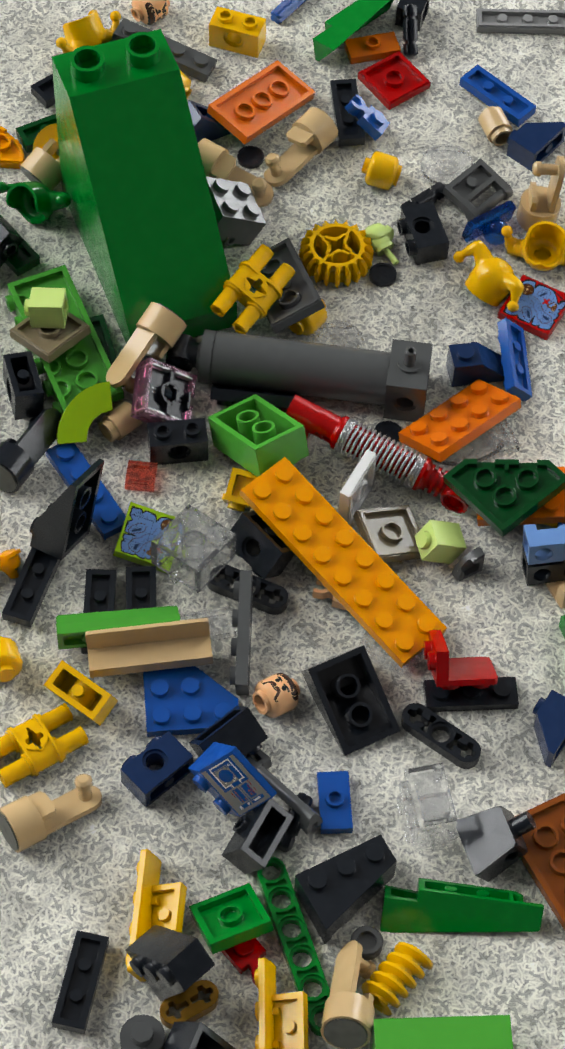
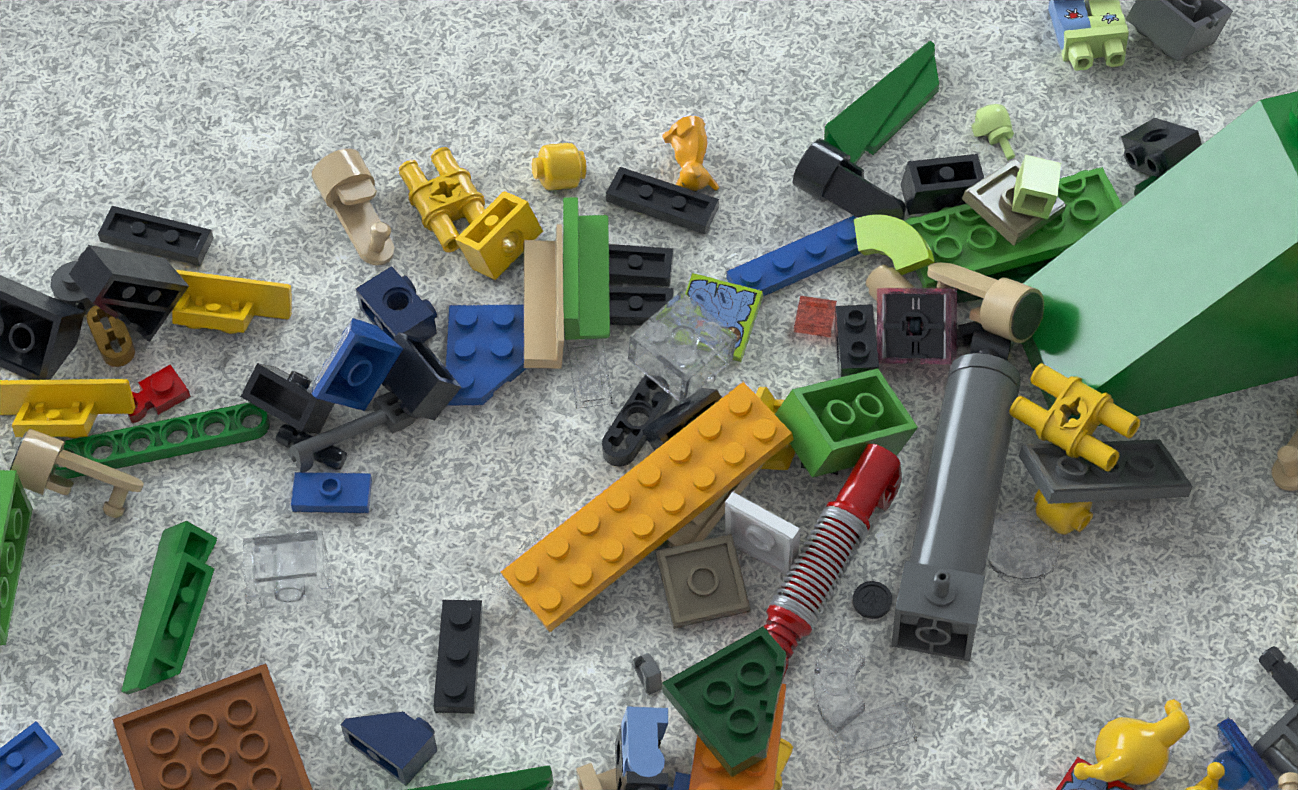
camera: 100 degrees right, 0 degrees up
(69, 517) = (731, 218): black slope -> none
(228, 395) = (923, 439): black plate -> none
(231, 918) = (193, 369): green plate -> none
(235, 211) = (1236, 413): dark grey brick -> none
(243, 622) = (563, 401): dark grey plate -> none
(276, 695) = (477, 435): light nougat head -> none
(335, 245) = (1185, 573): yellow gear -> none
(344, 884) = (212, 483): black wedge -> none
(351, 700) = (463, 513): black slope -> none
(370, 940) = (148, 512): dark grey tile -> none
(381, 240) = (1209, 613): yellowish green piece -> none
(382, 274) = (1151, 618): black piece -> none
(394, 975) = (91, 530): yellow piece -> none
(423, 233) = (1205, 684): black brick -> none
(438, 723) = (390, 641): black beam -> none
(440, 541) = (678, 630): yellowish green brick -> none
(456, 672) = (483, 627): red bracket -> none
(459, 420) = (876, 676): orange plate -> none
(473, 362) = (978, 713): dark blue slope -> none
(494, 839) = (239, 642): torso -> none
(514, 359) = (988, 765): blue plate -> none

